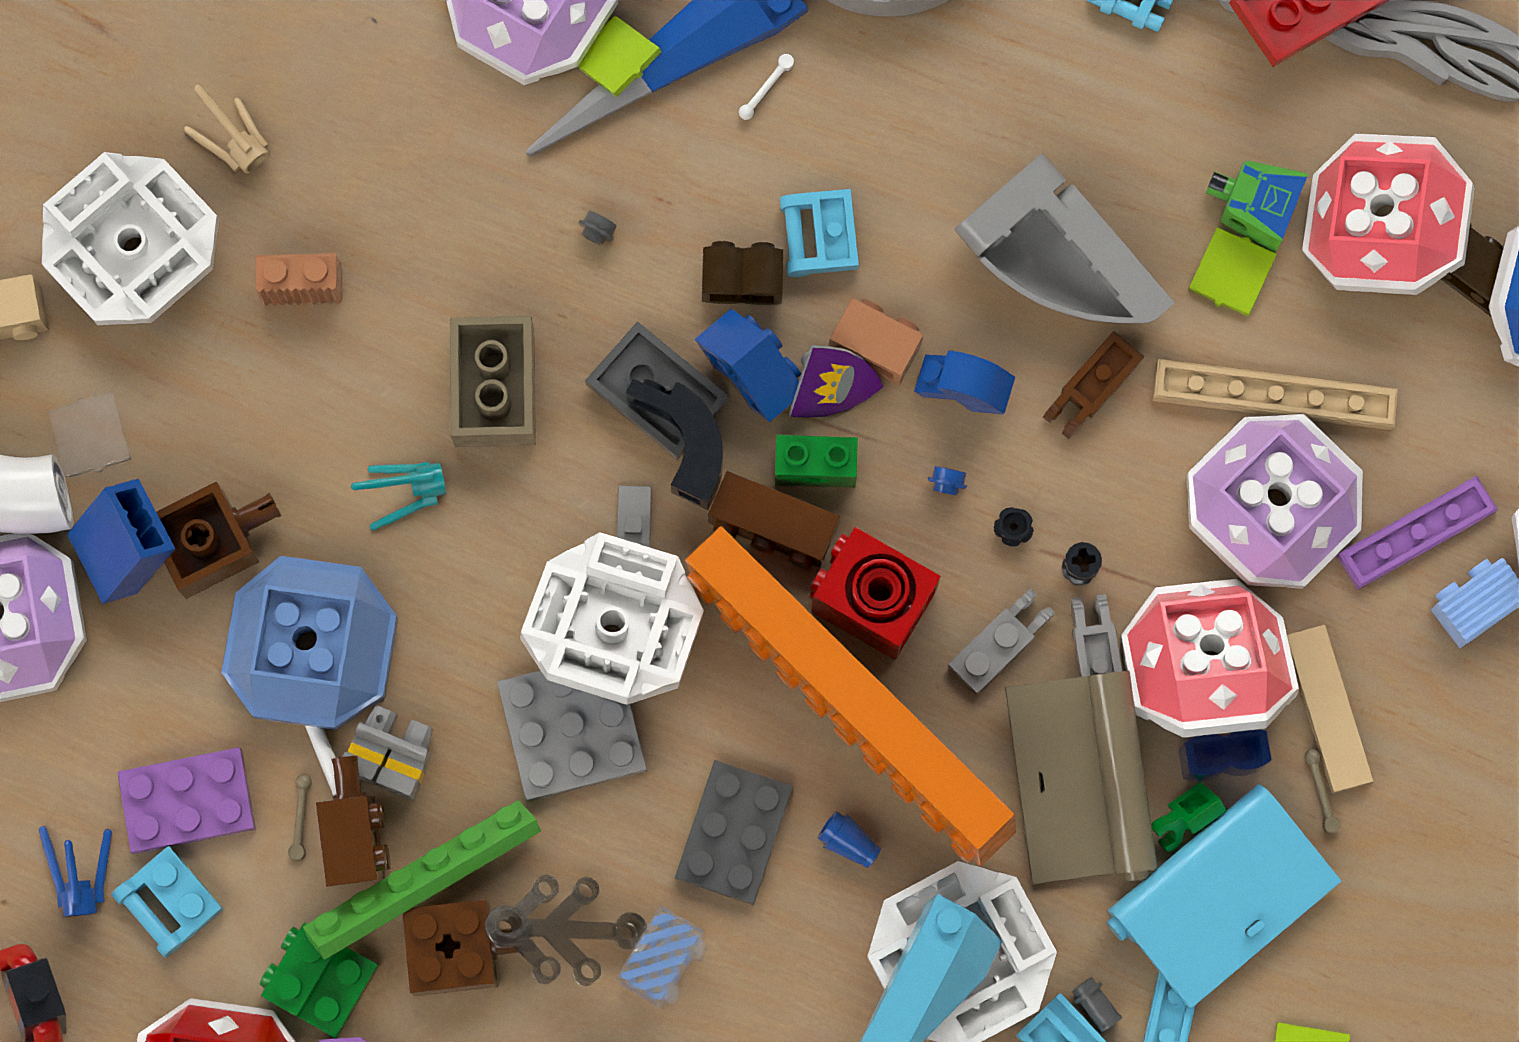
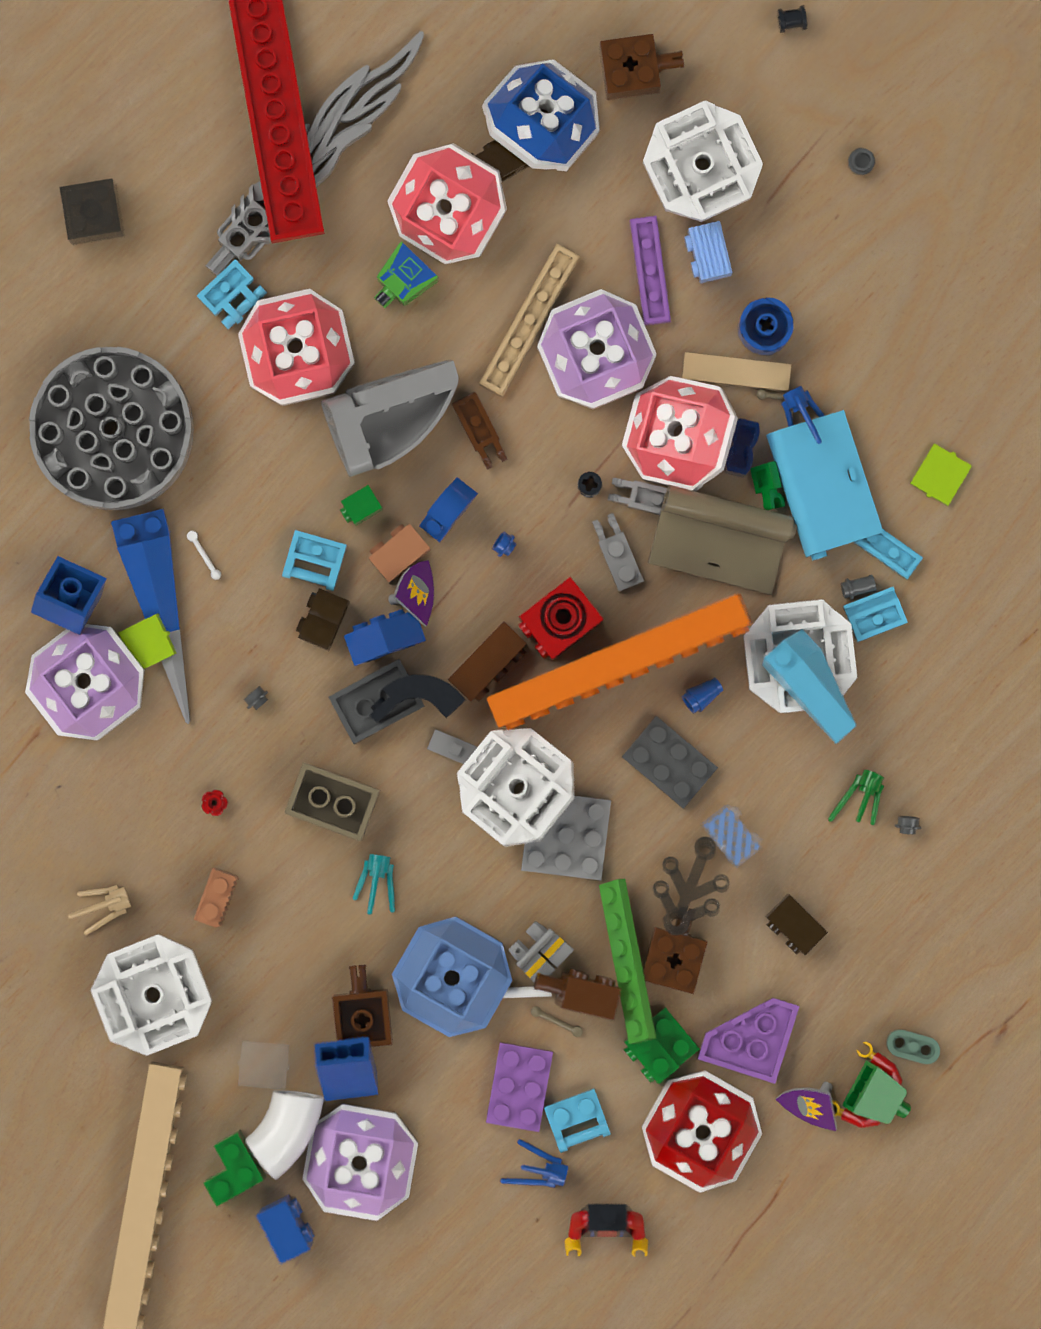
camera: 65 degrees left, 10 degrees up
(430, 238) = (207, 800): none -> red plate
(816, 461) = (461, 621): green brick -> none
(920, 264) = (360, 506): none -> green brick
(1014, 516) = (554, 510): black plate -> none
(1092, 133) = (300, 375): none -> coral piece
(1232, 271) = (440, 312): lime piece -> none
(1325, 808) = (797, 400): none -> blue plant
(1430, 708) = (759, 312): none -> blue brick

